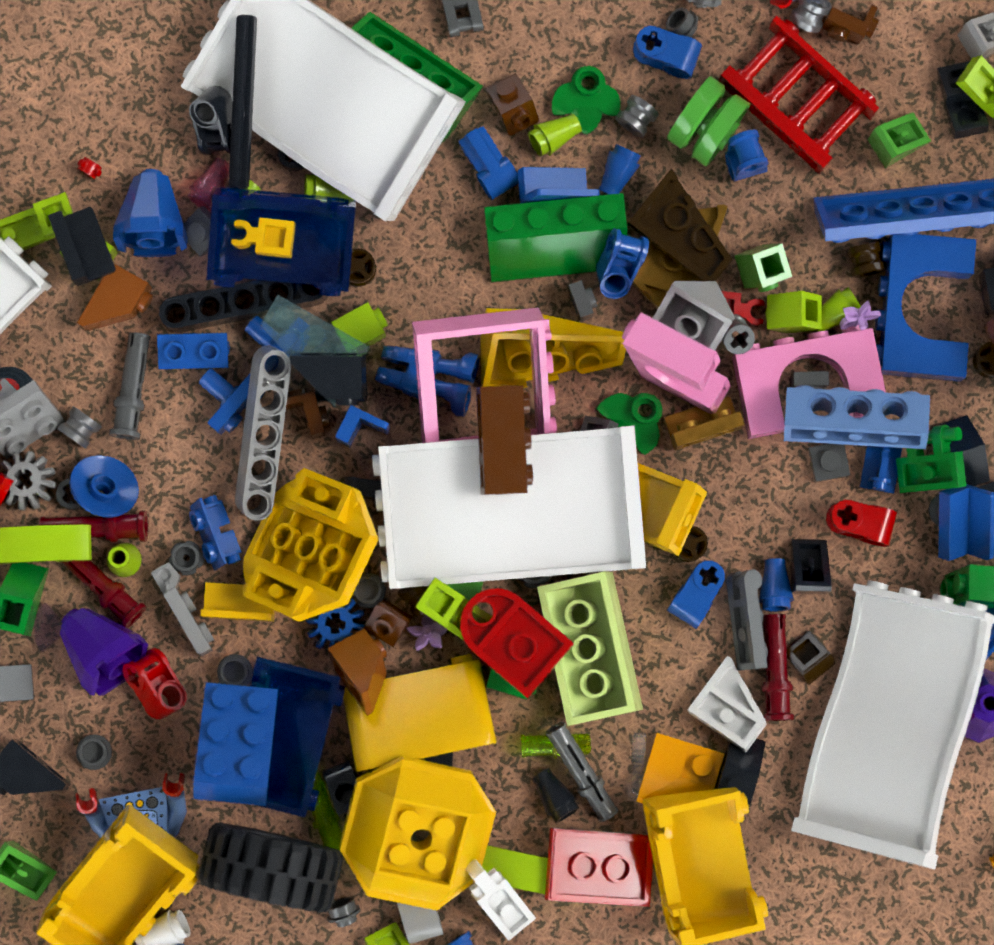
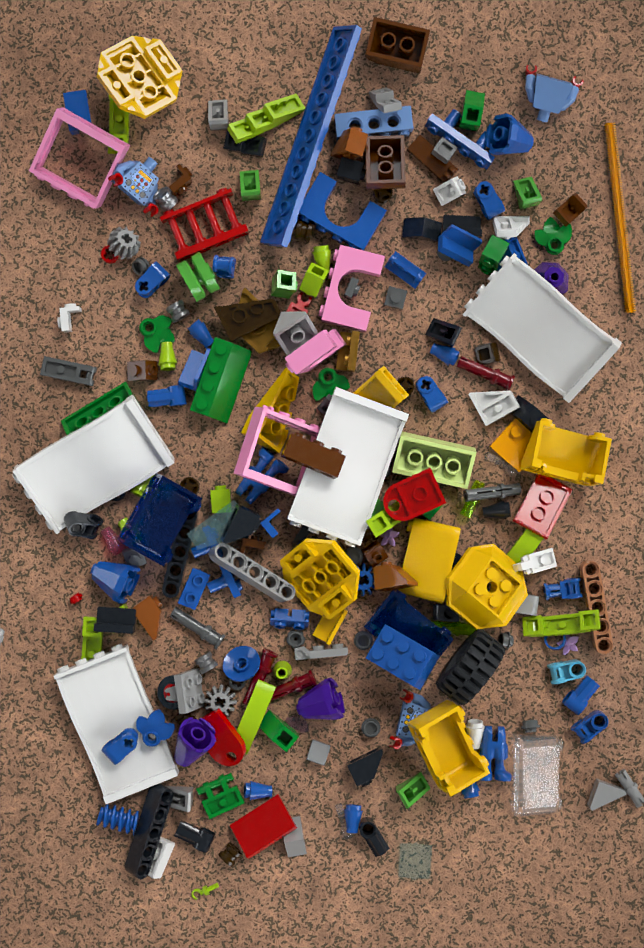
camera: 65 degrees left, 5 degrees up
(154, 682) = (350, 683): red piece -> none
(242, 101) = (79, 506): black axle -> none
(271, 237) = (156, 524): yellow plate -> none
(582, 300) = (258, 382): dark grey plate -> none
(620, 257) = (249, 354): blue piece -> none
(743, 341) = (316, 311): dark grey bush -> none
(747, 619) = (455, 375): dark grey plate -> none
(858, 316) = (330, 251): lavender plant -> none
(868, 522) = (435, 294): red piece -> none
(870, 430) = (383, 285): medium blue brick -> none
(936, 470) = (425, 251): green plate -> none

